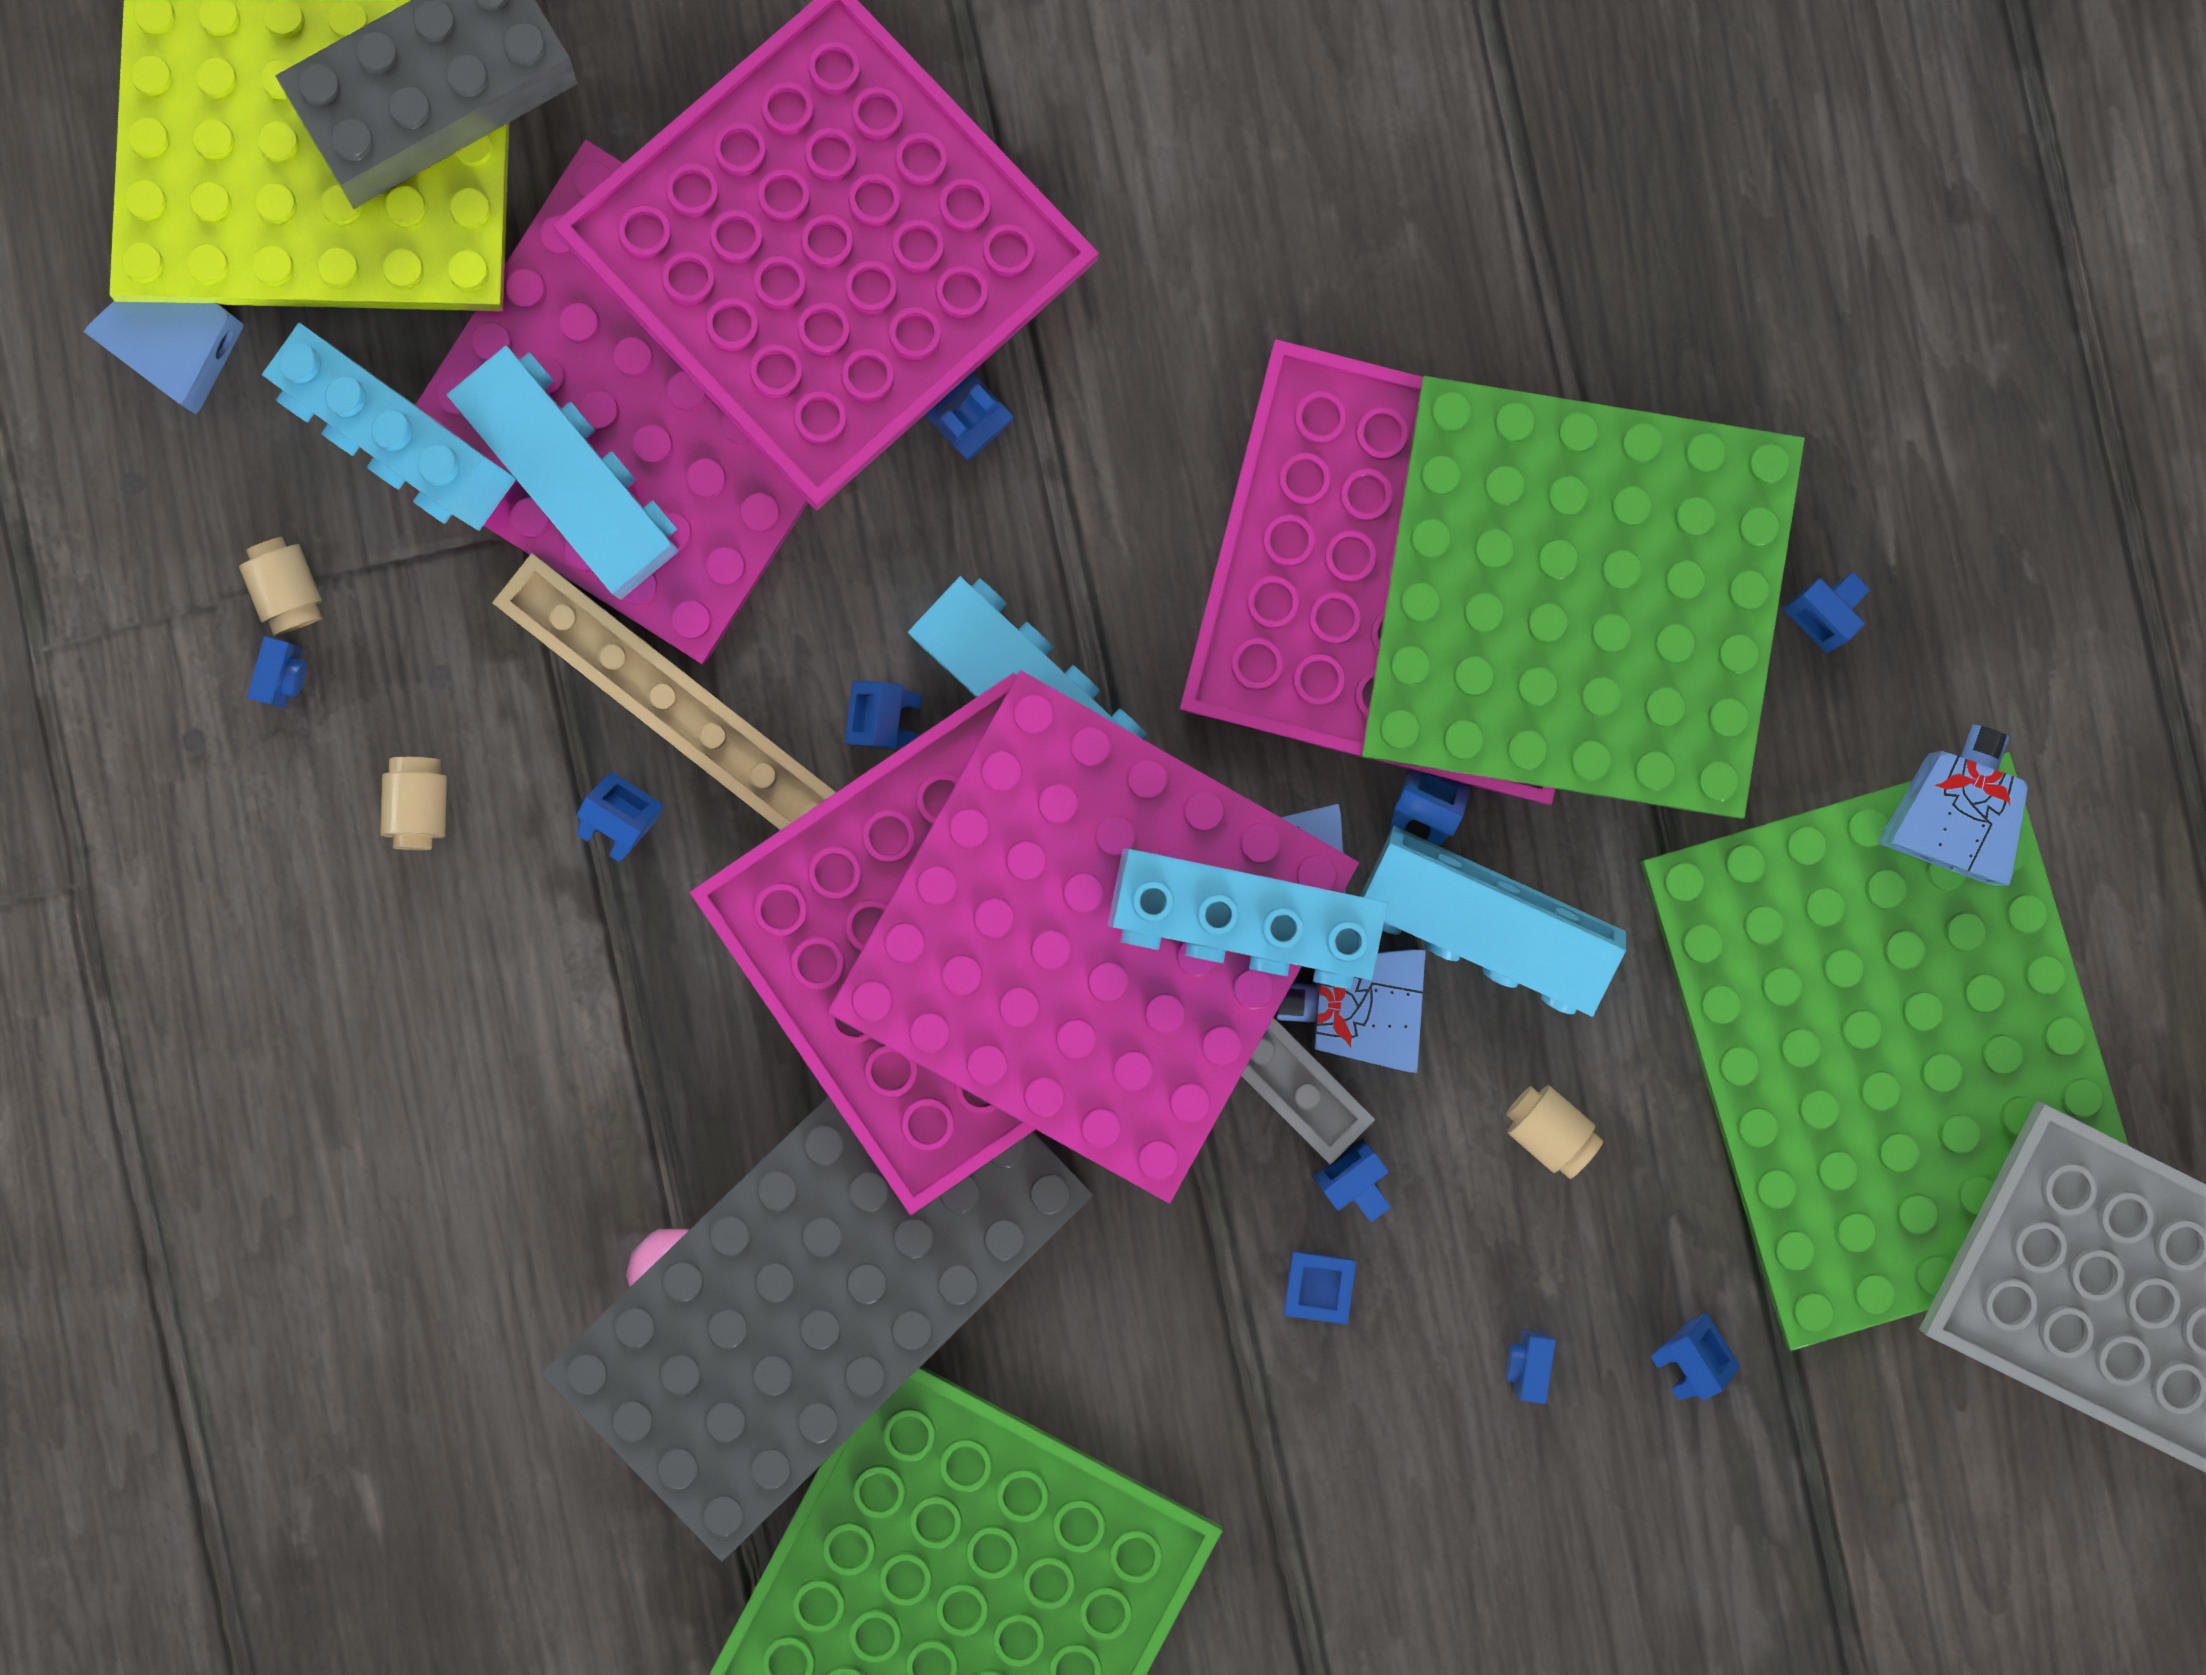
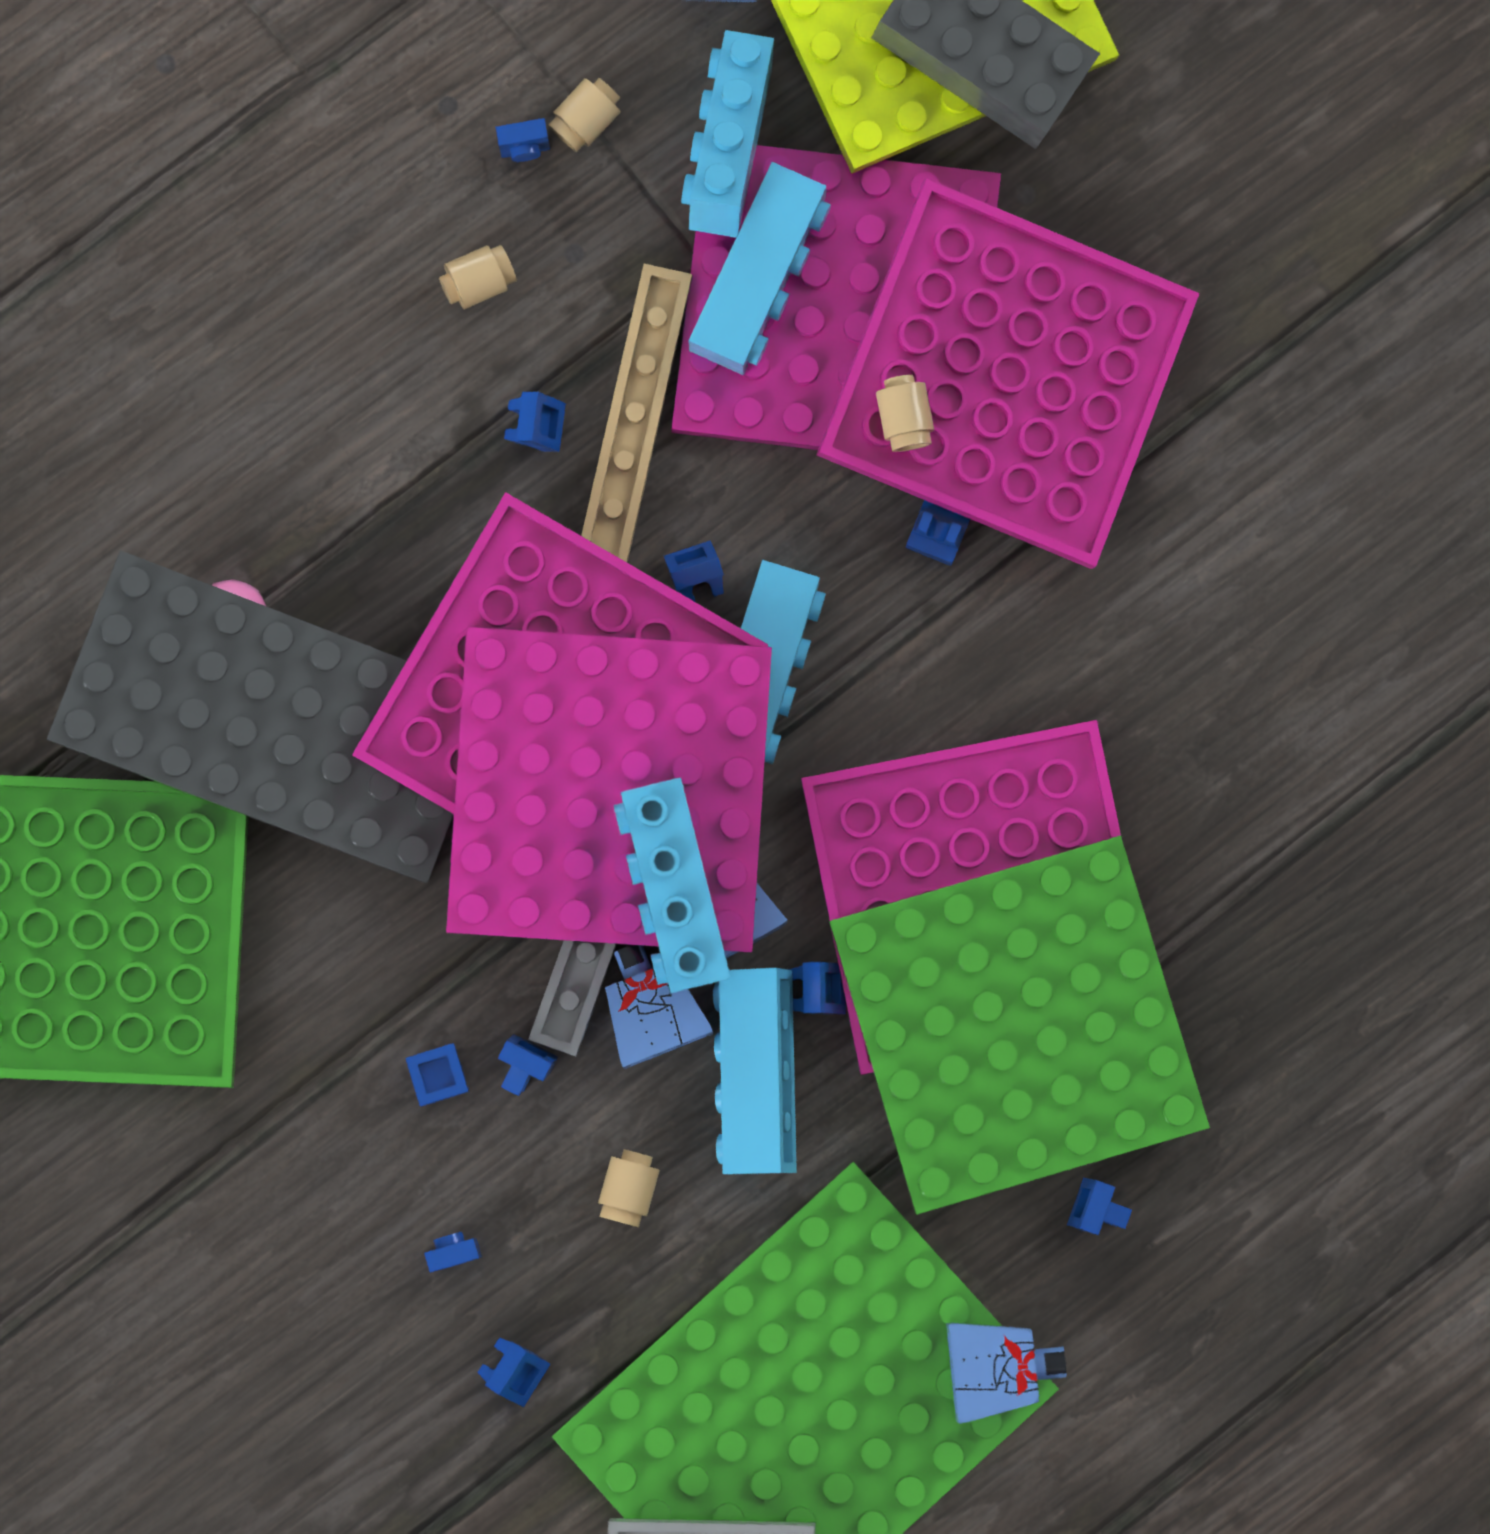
camera: 65 degrees right, 5 degrees down
(820, 382) = (905, 413): none -> tan brick

